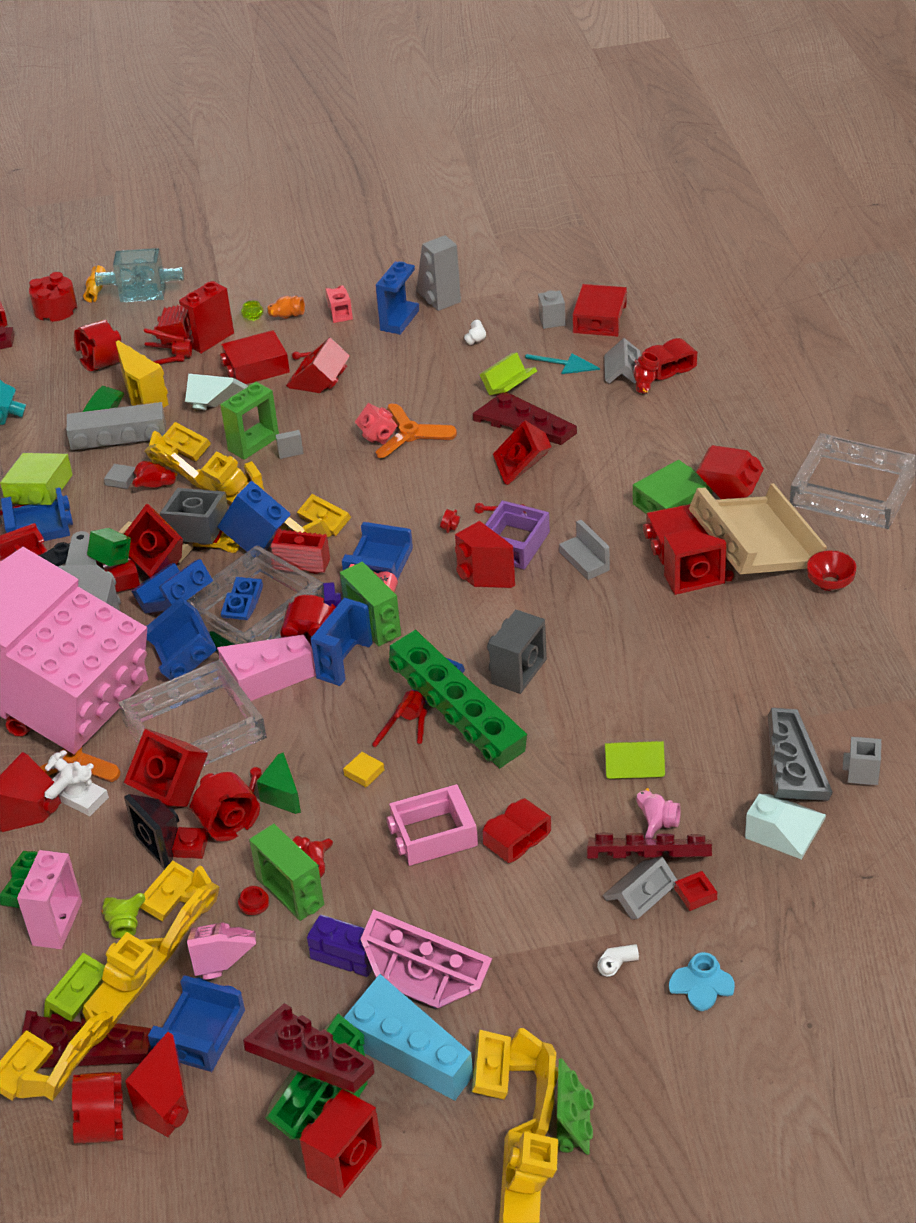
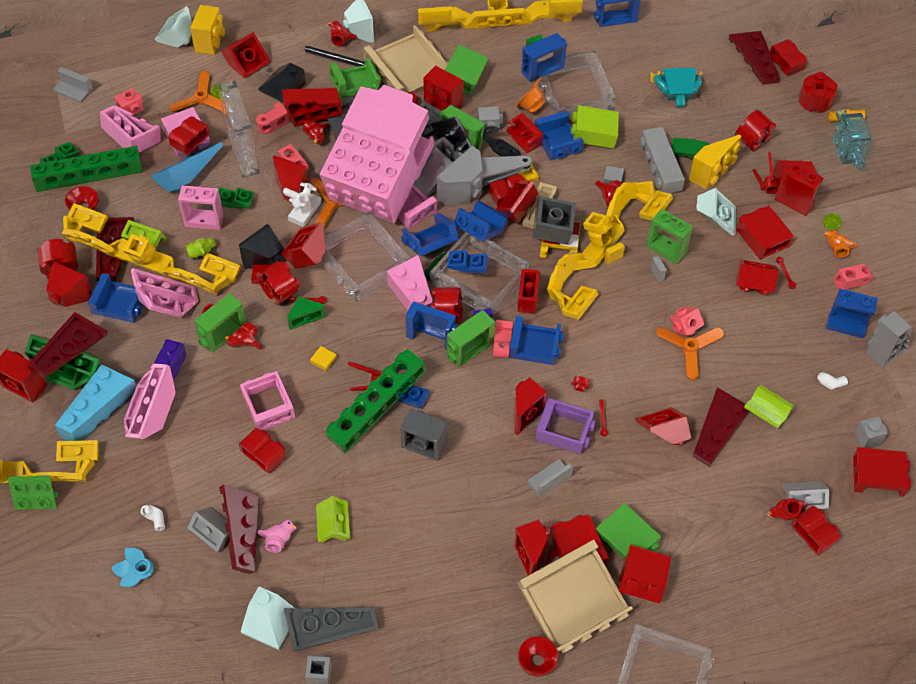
camera: 80 degrees right, 15 degrees up
(109, 546) = (508, 175): green panel -> none
(253, 518) = (545, 253): blue panel -> none
(573, 365) = (804, 461): teal piece -> none
(696, 890) = (206, 561): red plate -> none

